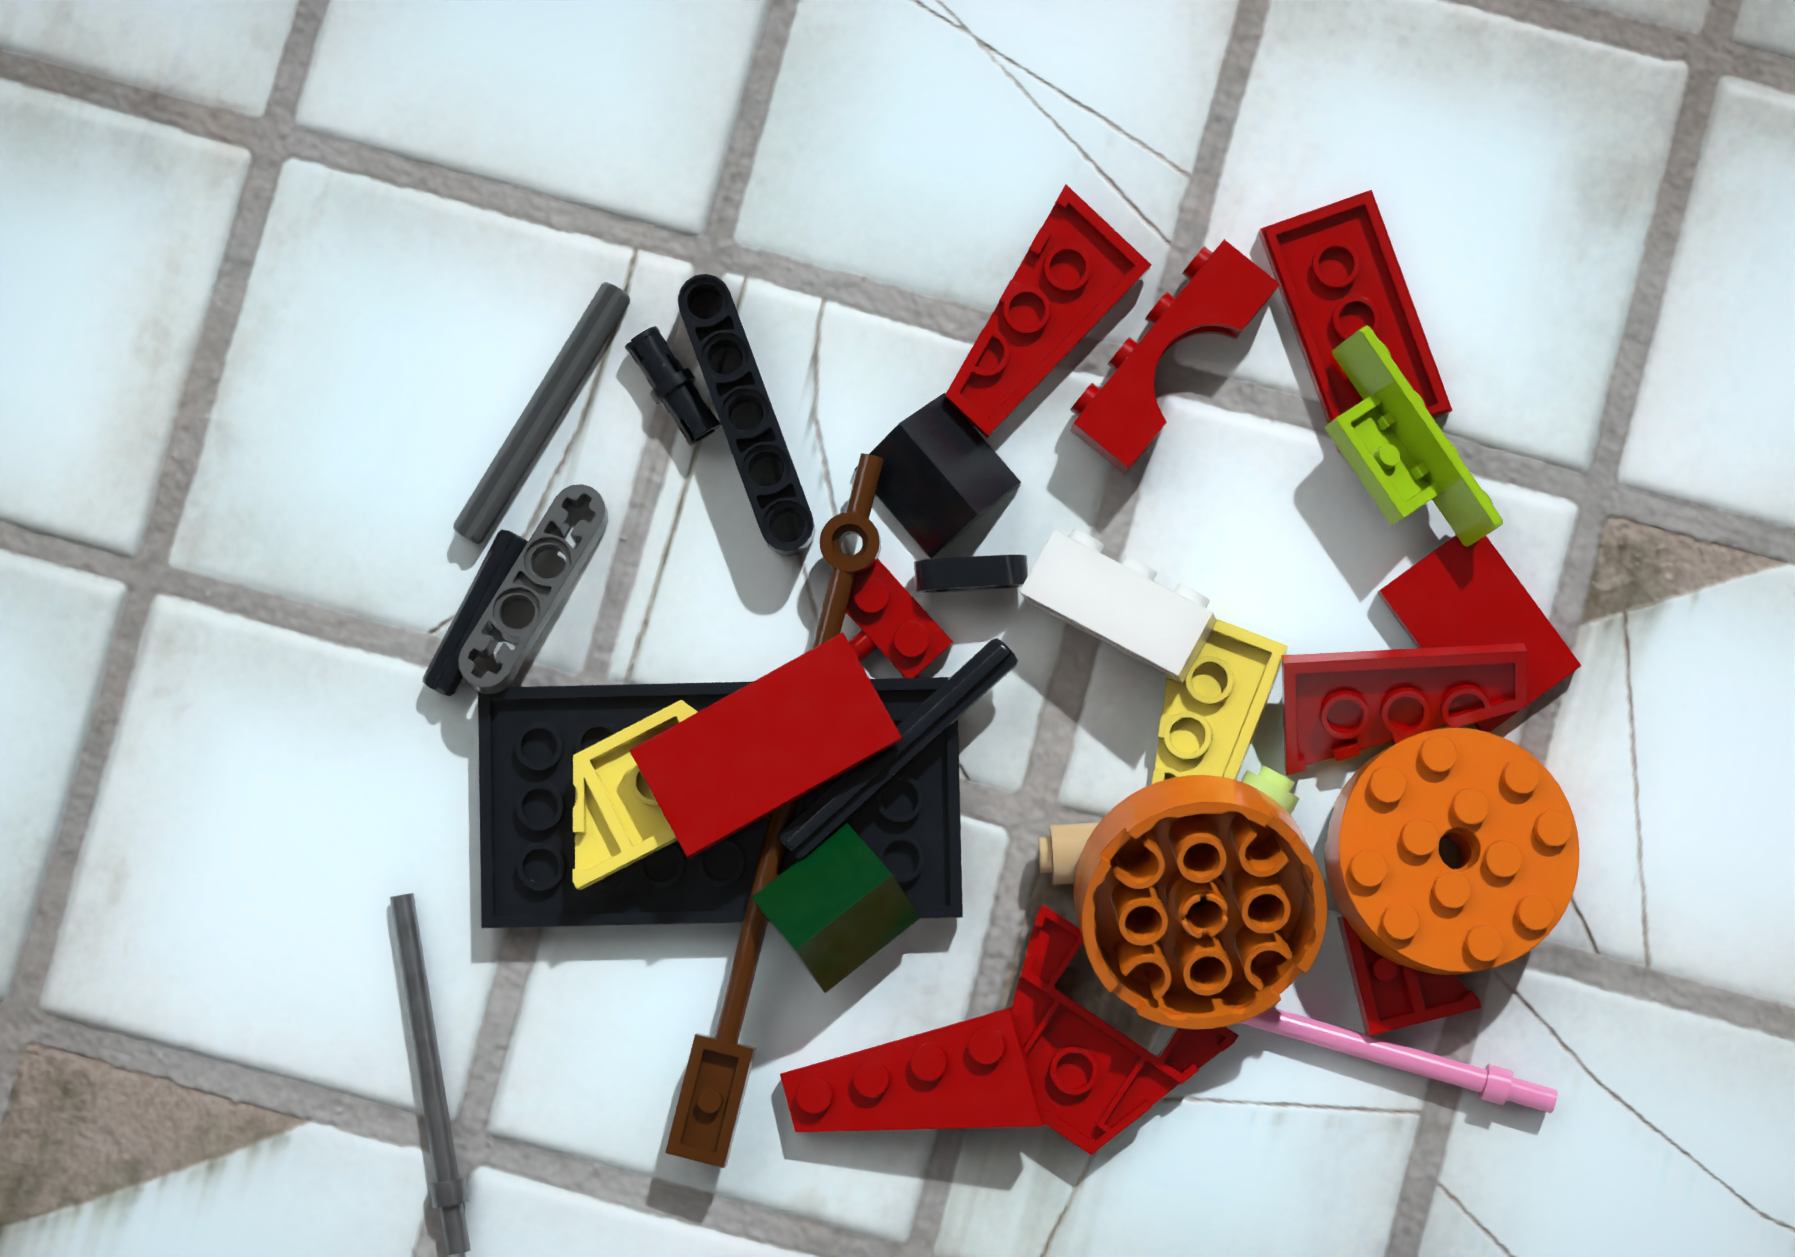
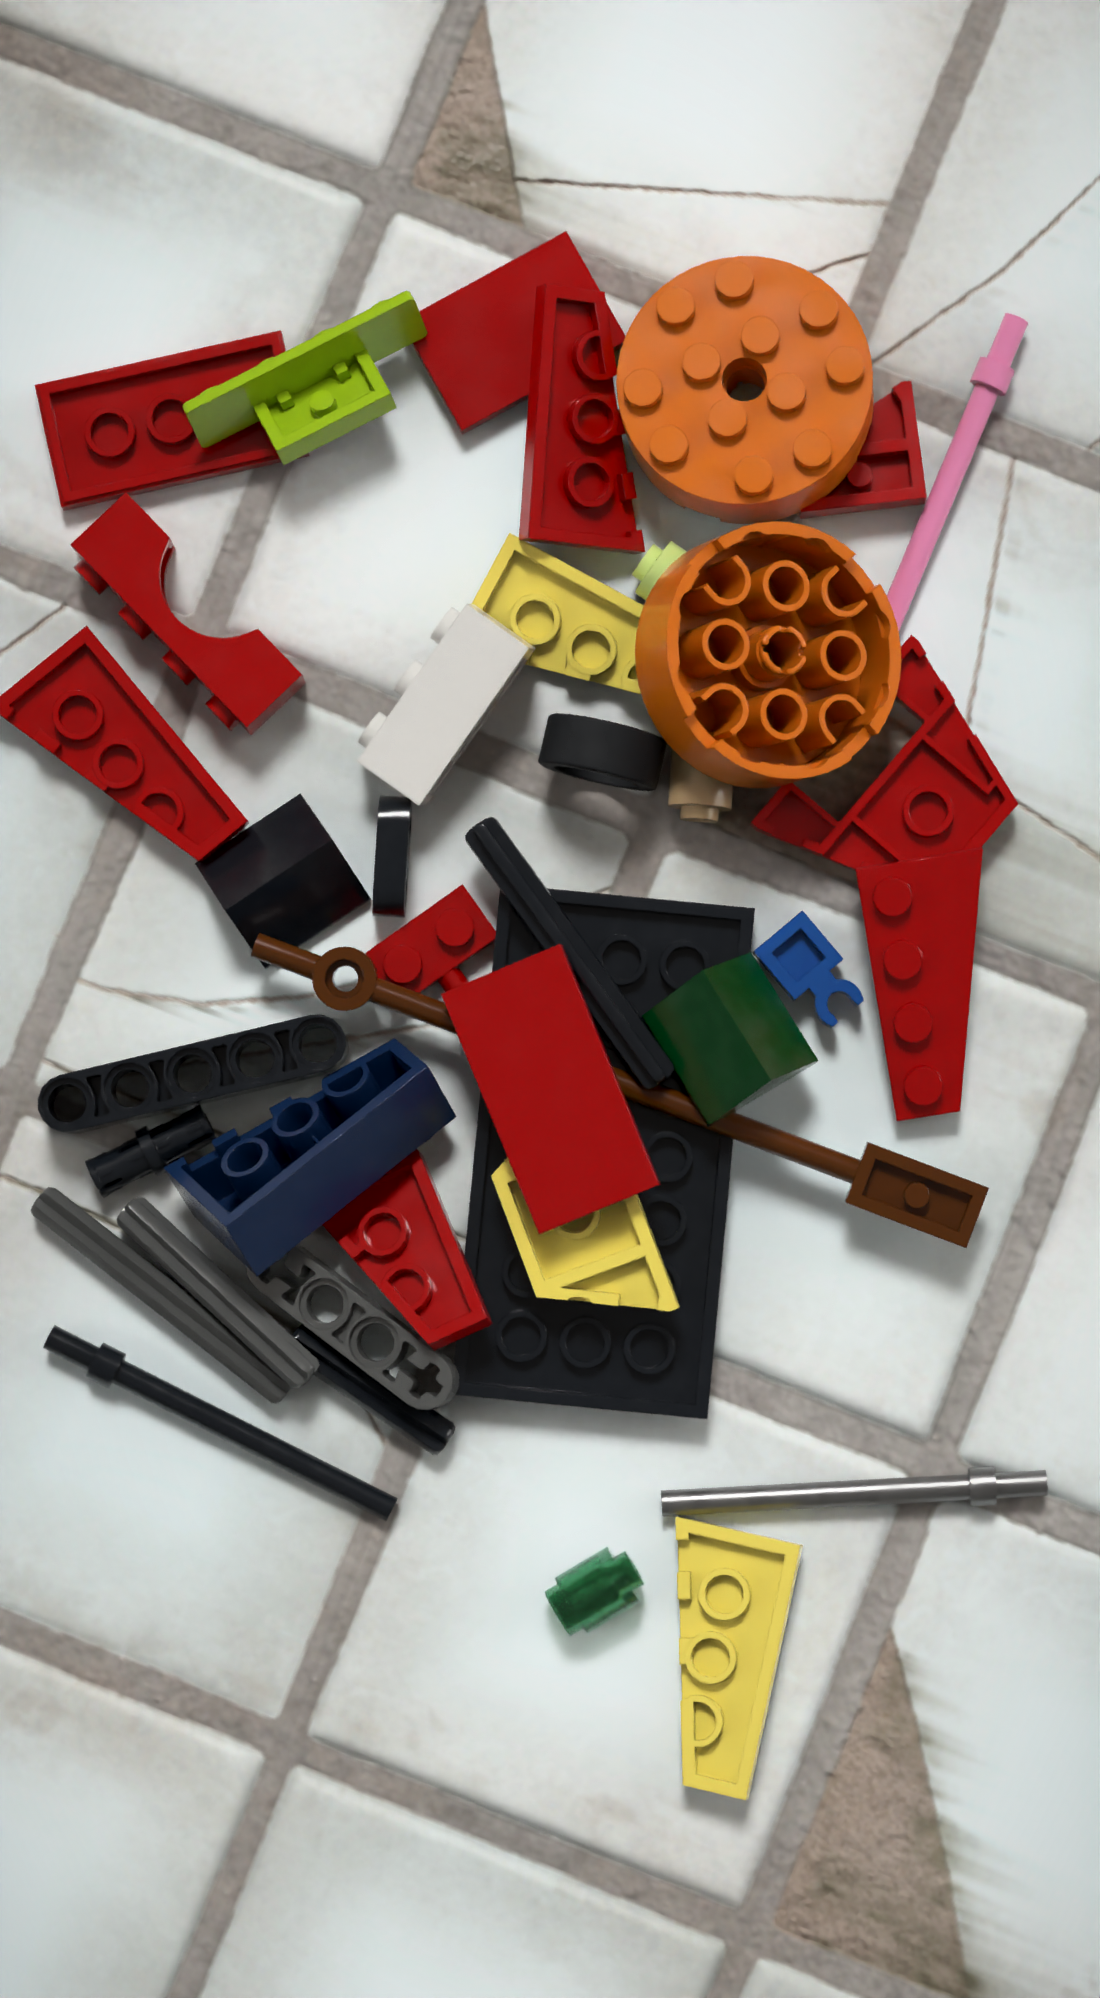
camera: 85 degrees left, 0 degrees up
(292, 973) = (732, 1628): none -> light yellow wing
(312, 842) = (595, 1591): none -> clear green brick
(470, 371) = (108, 1366): none -> black bar
(548, 462) = (218, 1292): none -> dark grey axle
(608, 631) = (412, 1253): none -> red wing
(683, 533) = (313, 1156): none -> dark blue wedge
(918, 968) = (802, 961): none -> blue plate
(1091, 757) = (602, 752): none -> black tyre

